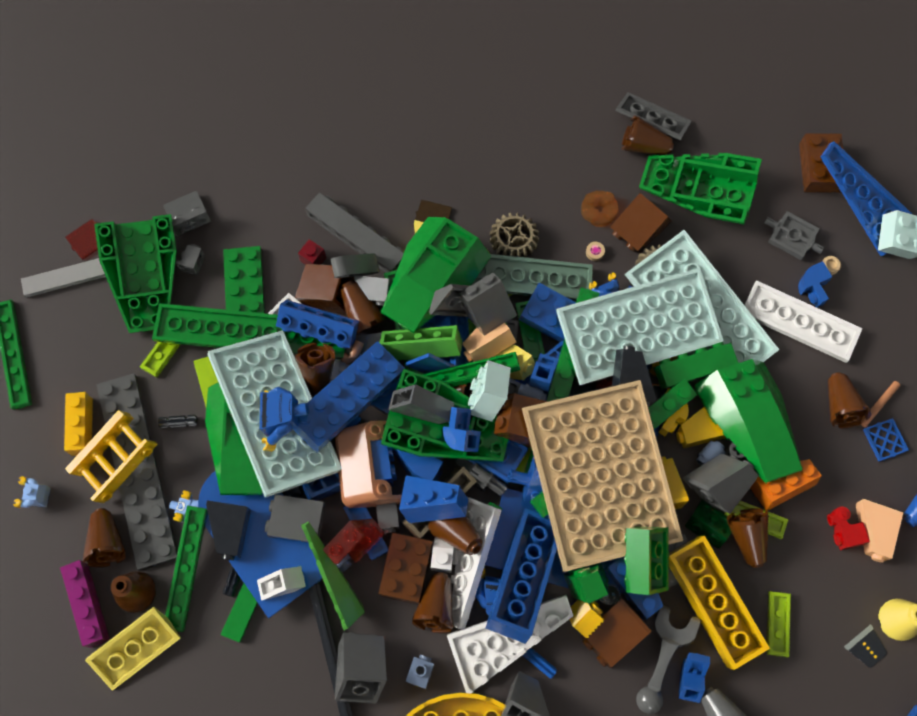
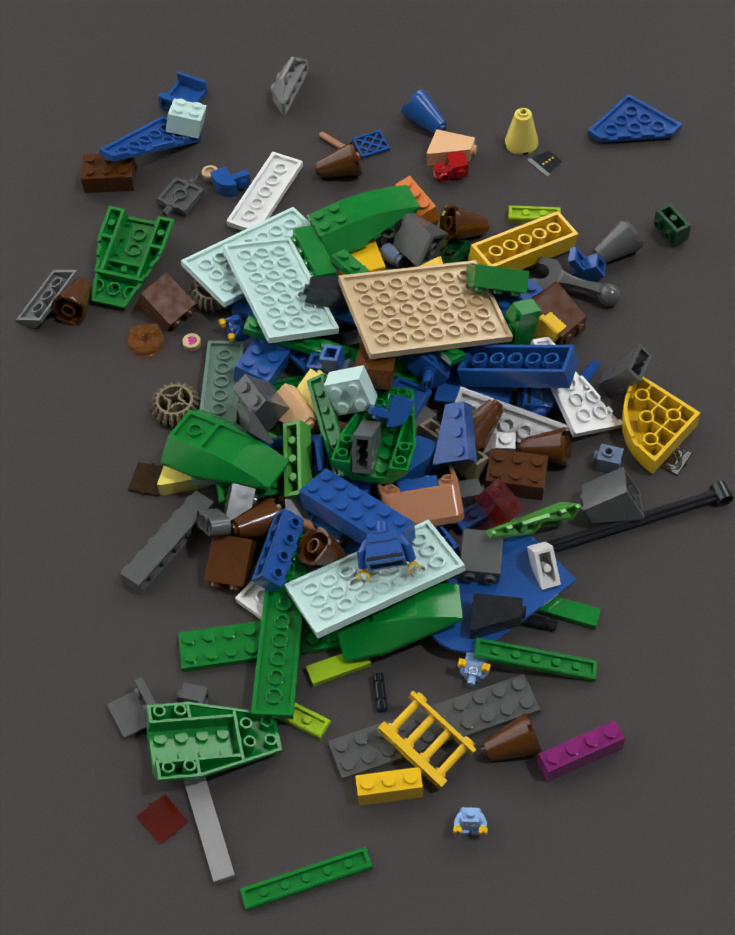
camera: 90 degrees left, 15 degrees down
(133, 591) = (562, 708): reddish brown cone -> none
(133, 648) = (620, 697): light yellow slope -> none
(312, 253) = (192, 579): dark red brick -> none
(488, 479) = (429, 406): dark grey axle -> none

